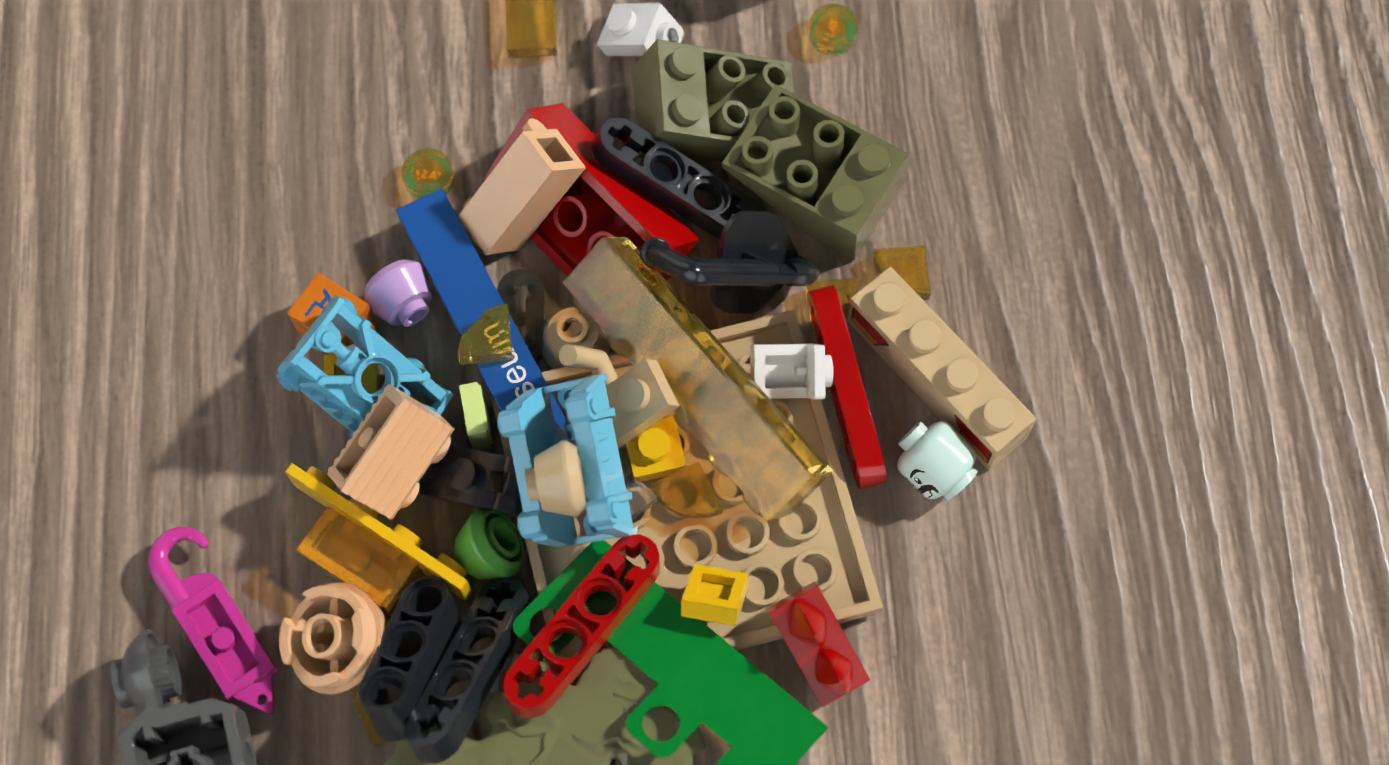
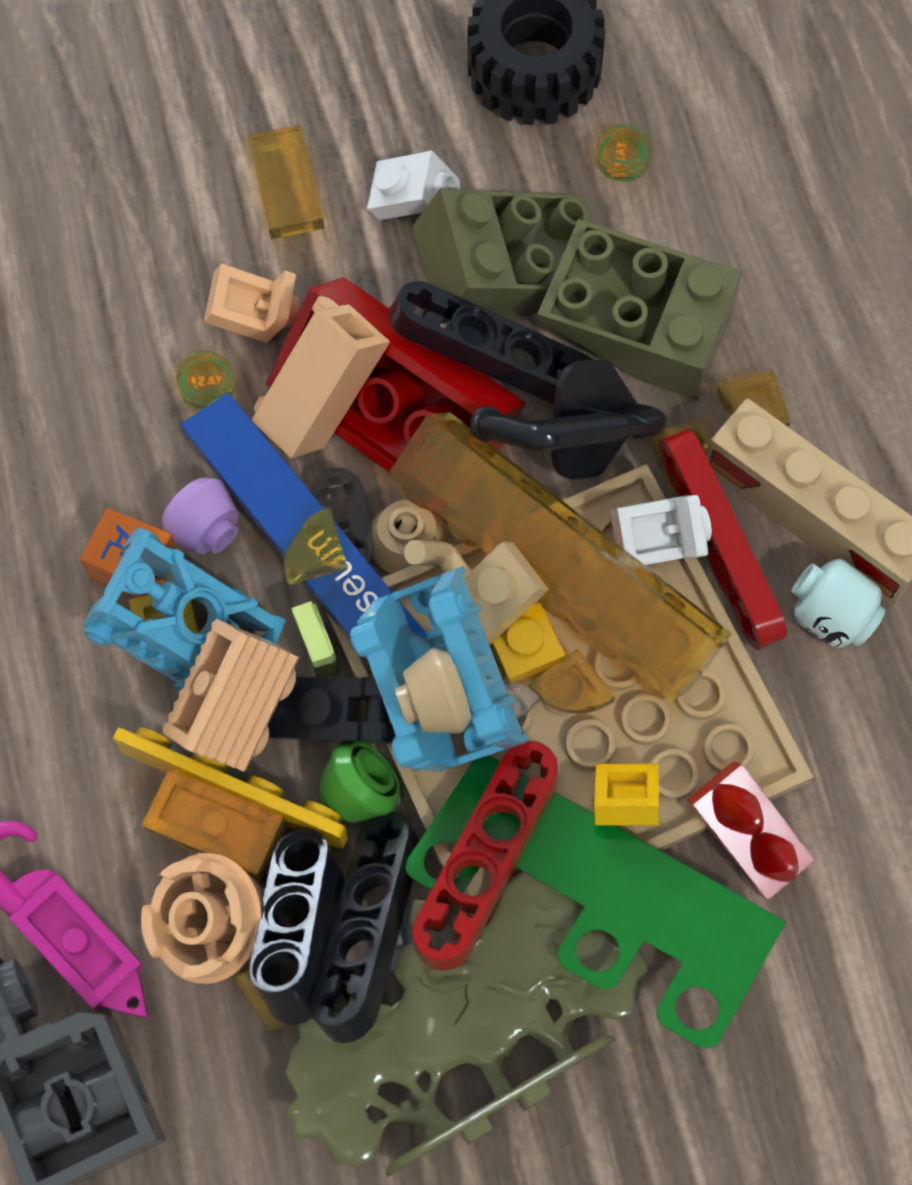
camera: 10 degrees left, 0 degrees up
(478, 112) = (251, 303): none -> light nougat bracket

